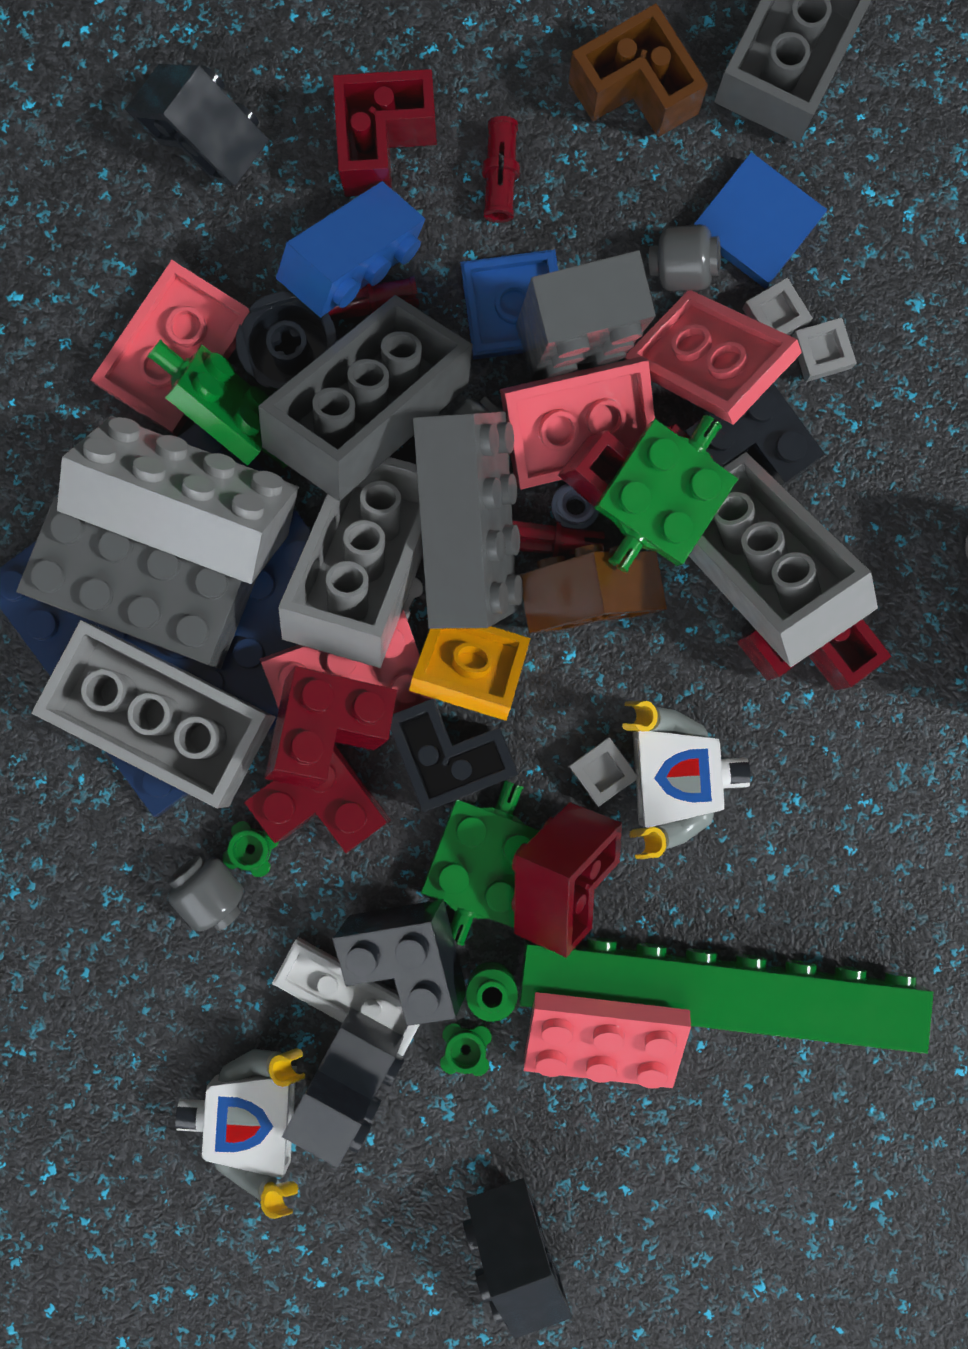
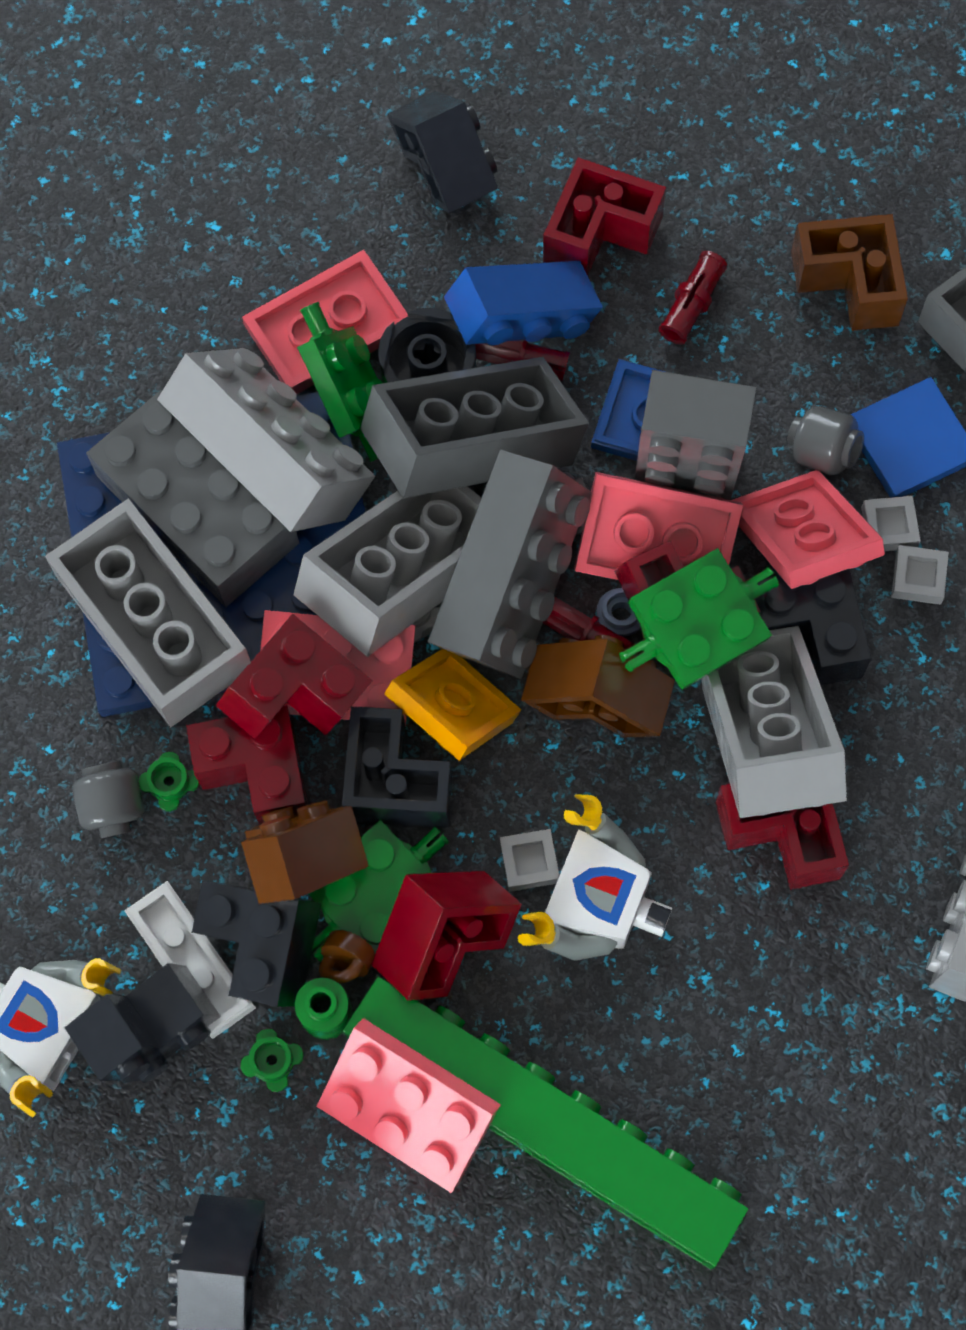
camera: 30 degrees right, 15 degrees down
(410, 877) = (302, 850): none -> reddish brown brick
(489, 933) = (346, 953): none -> reddish brown tile

